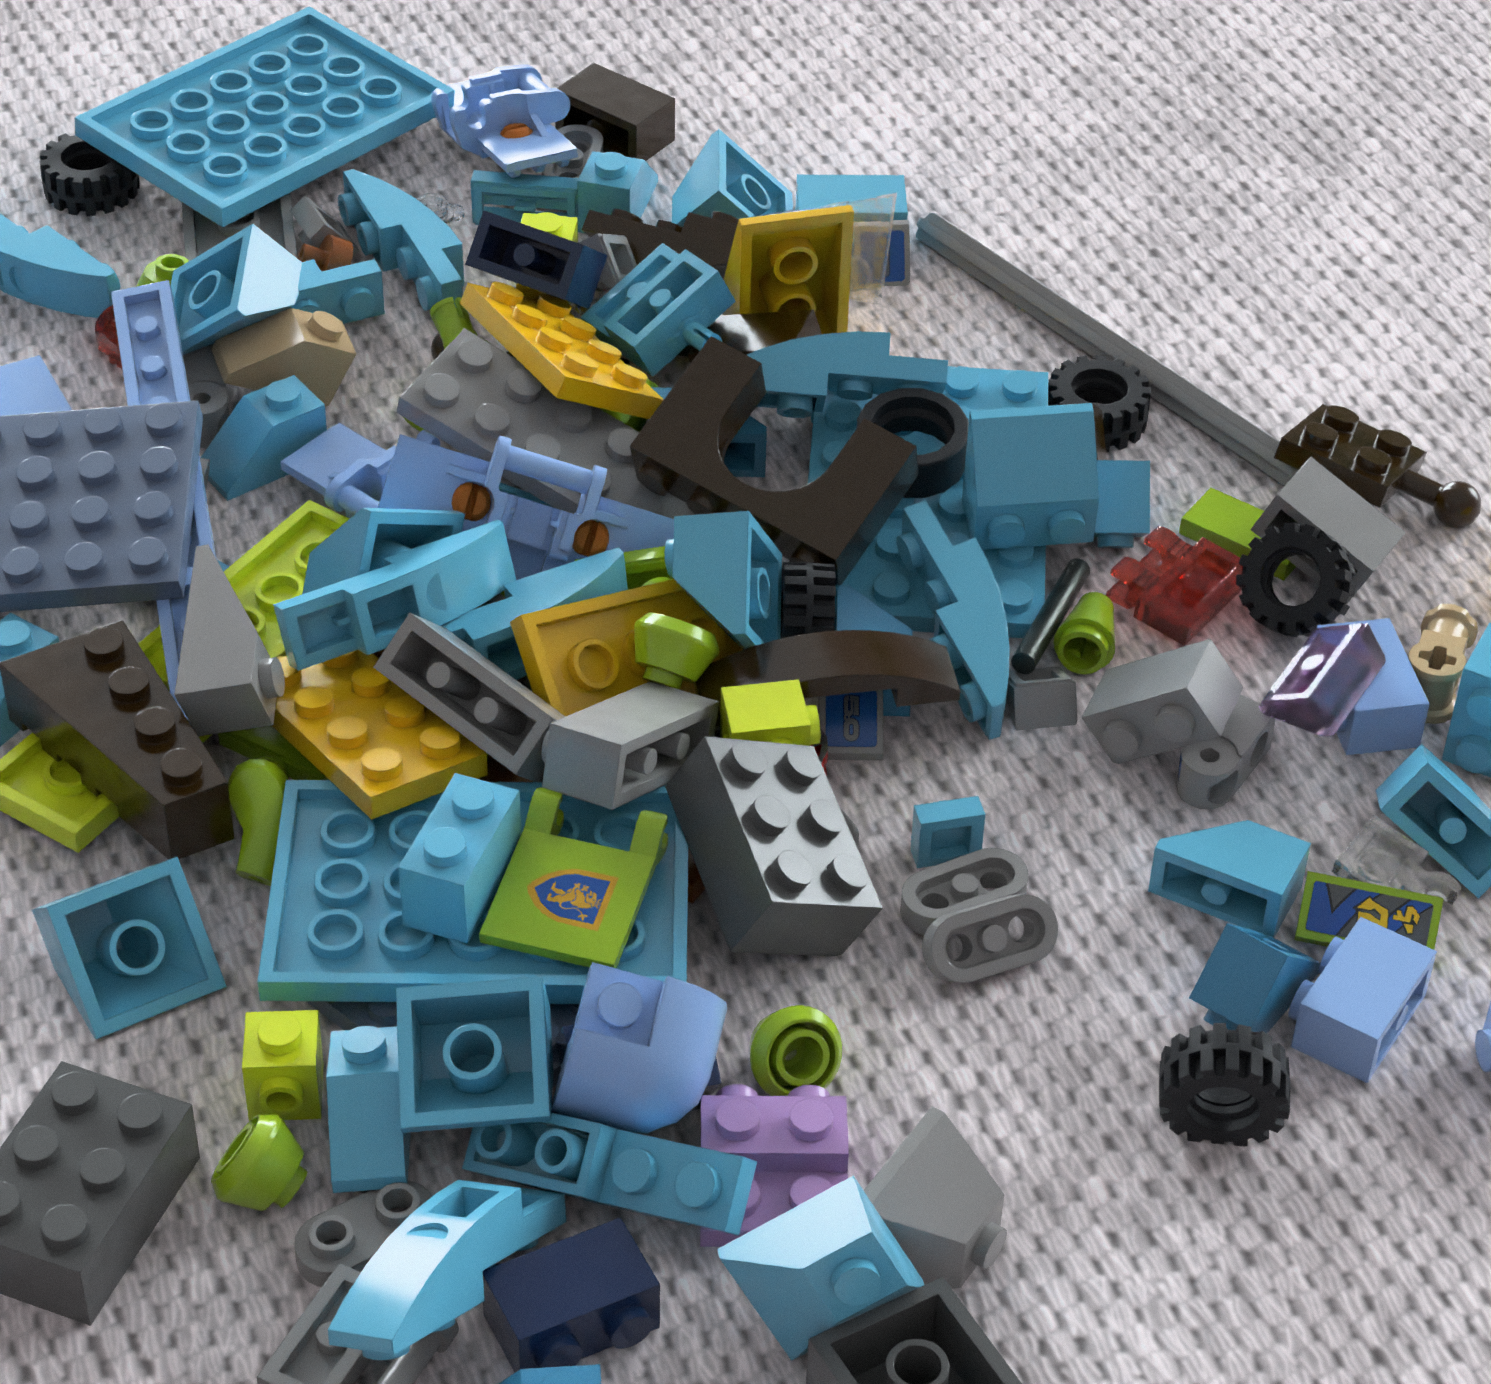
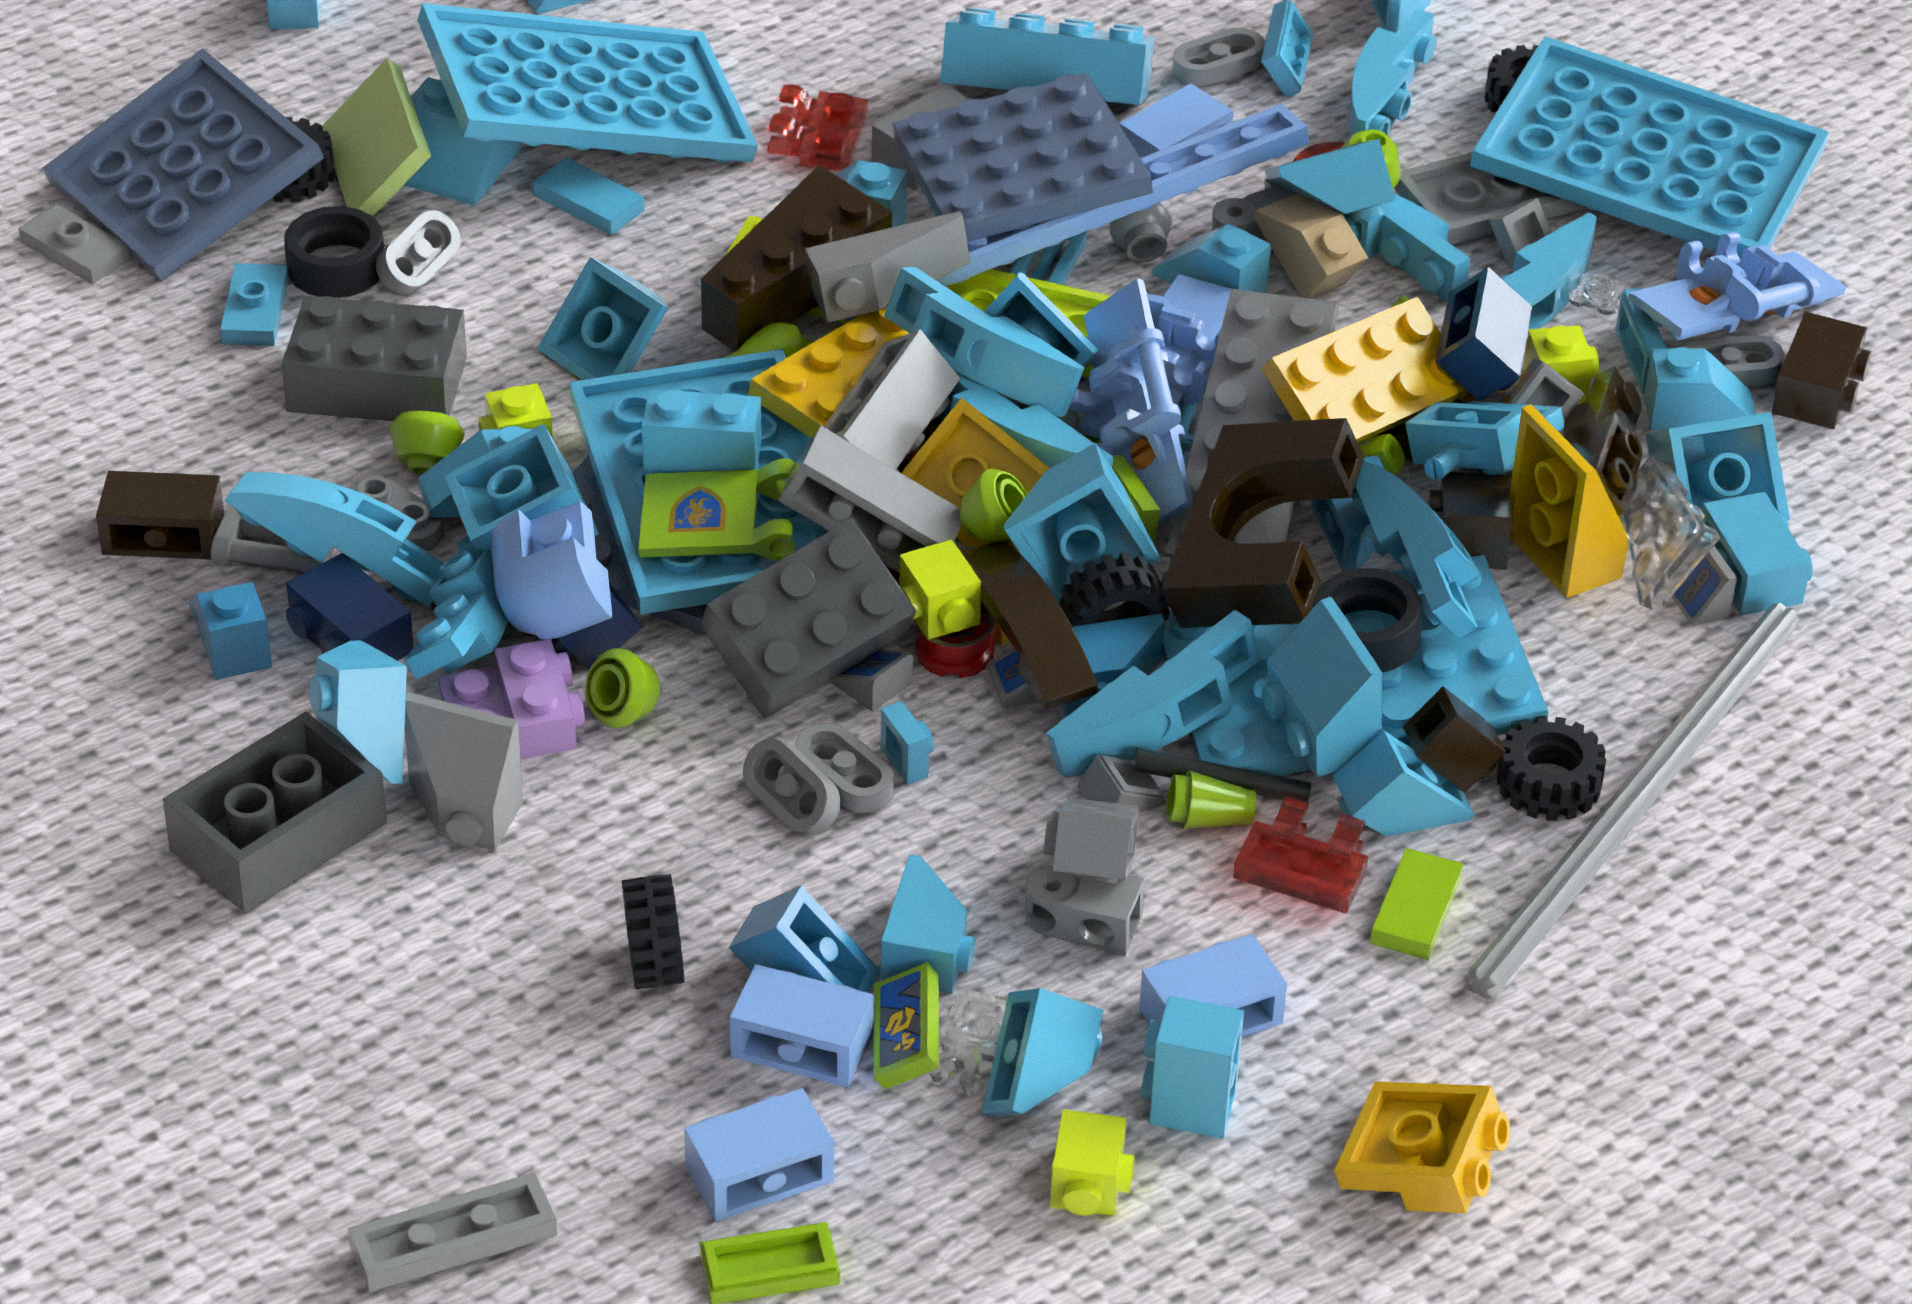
camera: 75 degrees right, 0 degrees up
(331, 254) = (1478, 243): dark orange tile -> none
(1264, 560) = (1318, 916): black tyre -> none
(1325, 679) = (1166, 940): clear purple slope -> none
(1328, 504) = (1411, 936): light grey brick -> none
(1375, 463) = (1559, 962): dark brown plate -> none
(1441, 657) = (1275, 1047): tan connector -> none

